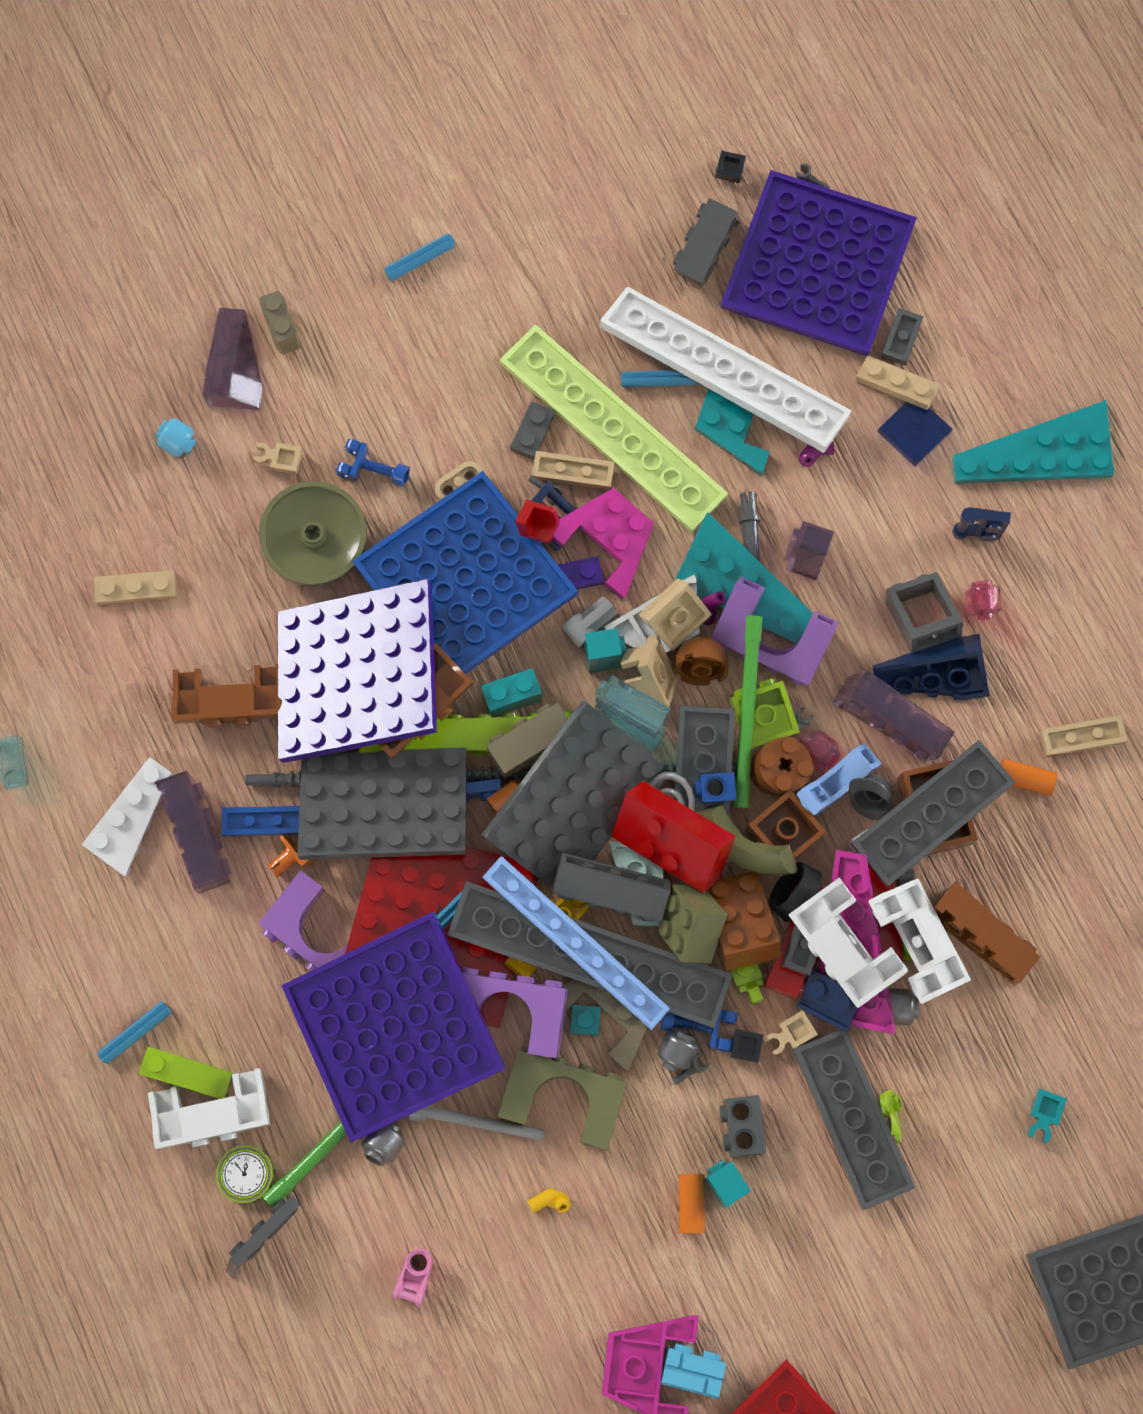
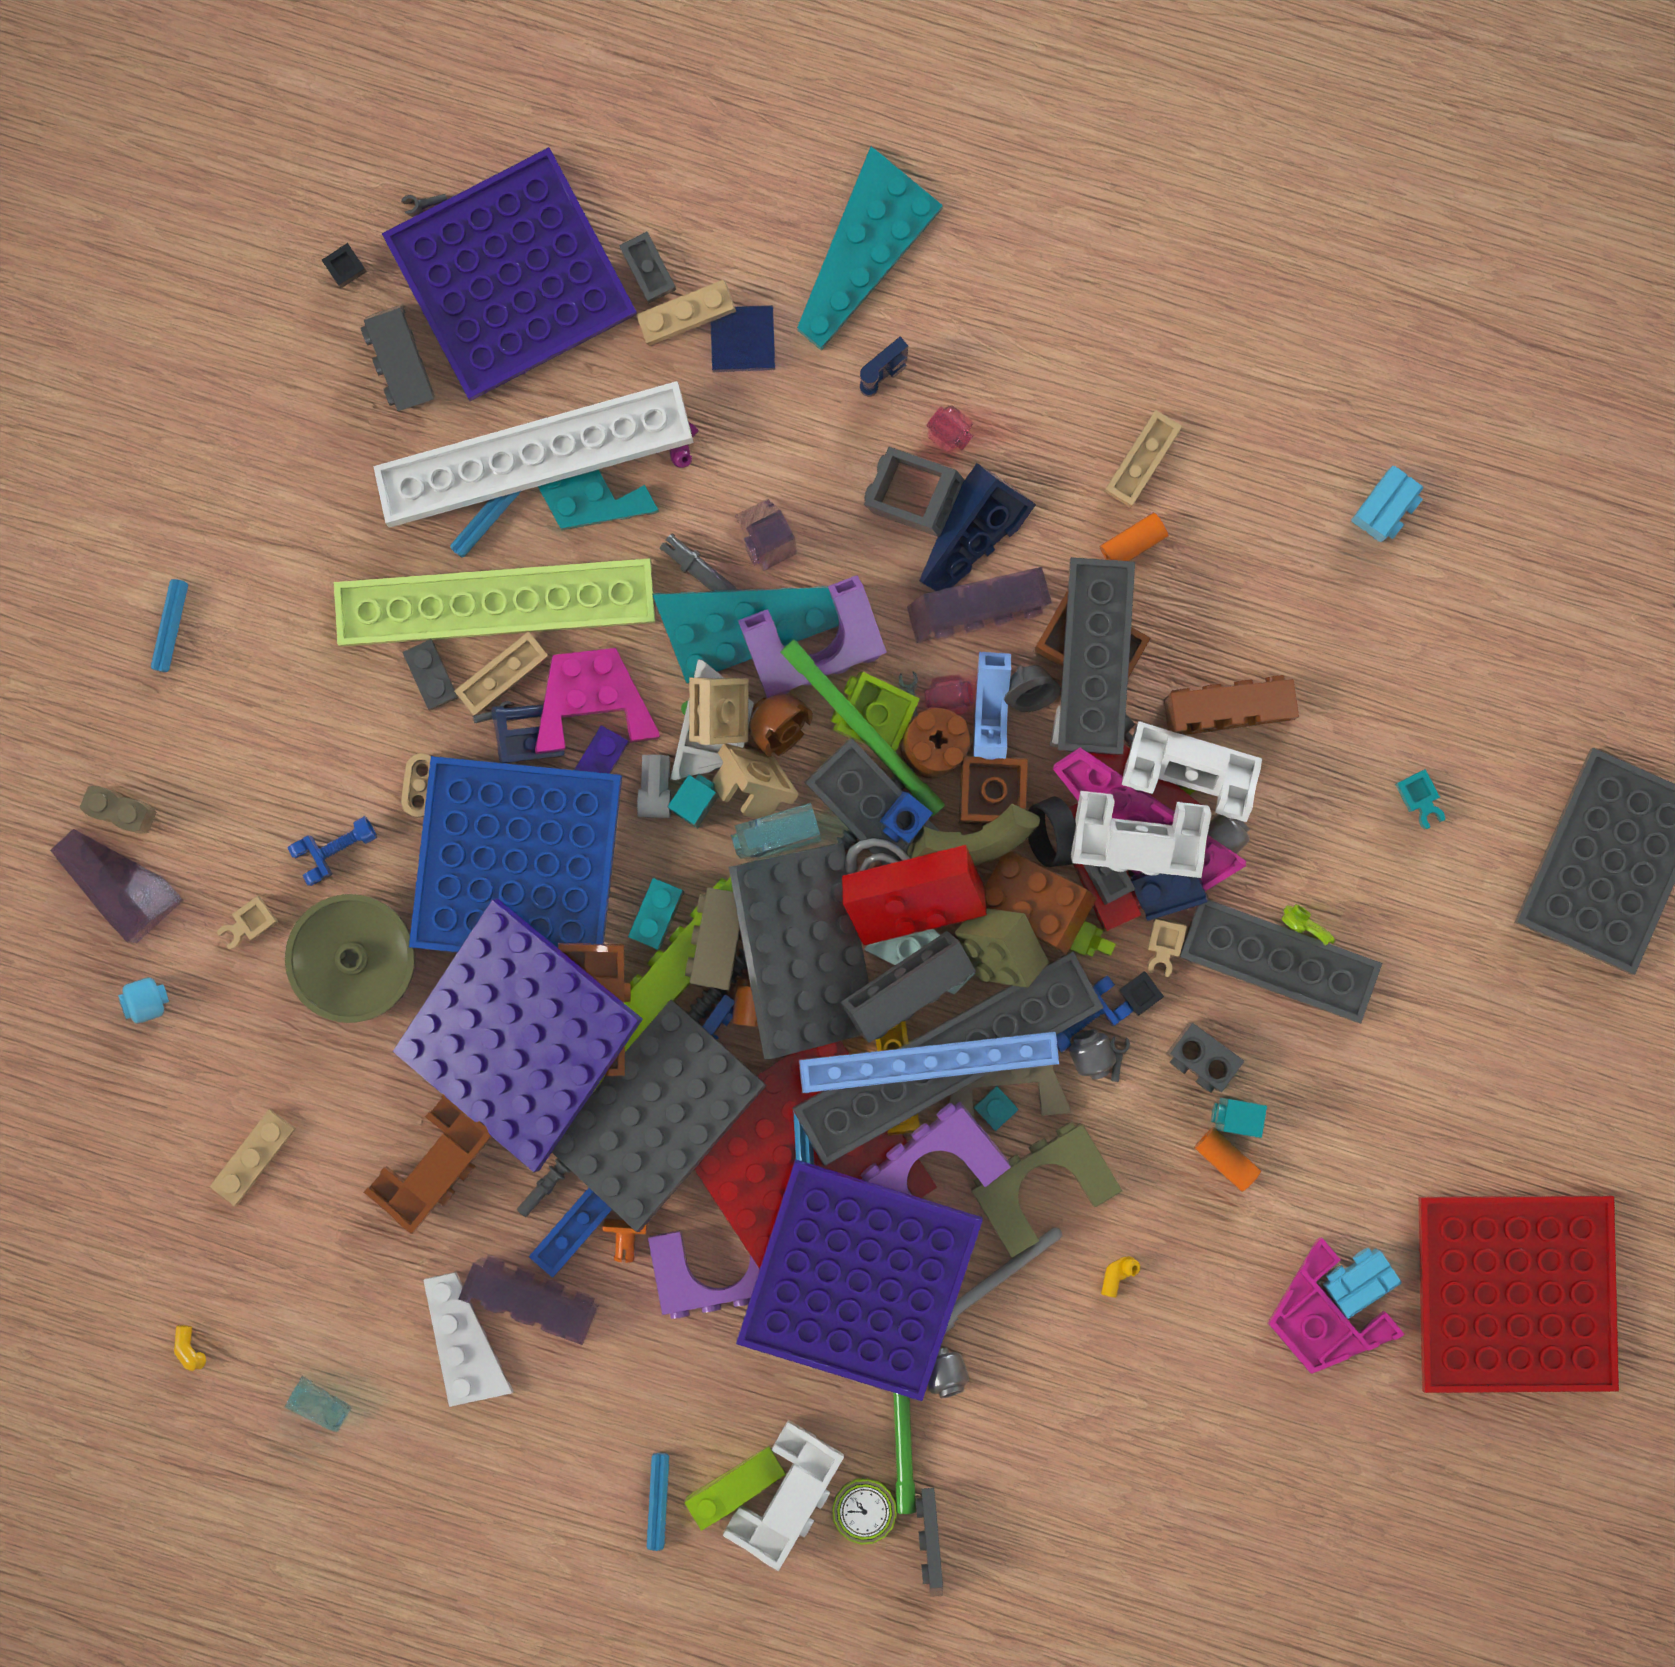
camera: 45 degrees left, 10 degrees up
(414, 1279) = (1080, 1447): bright pink piece -> none
(537, 521) = (526, 754): red panel -> none
(711, 603) = (735, 667): magenta arm -> none

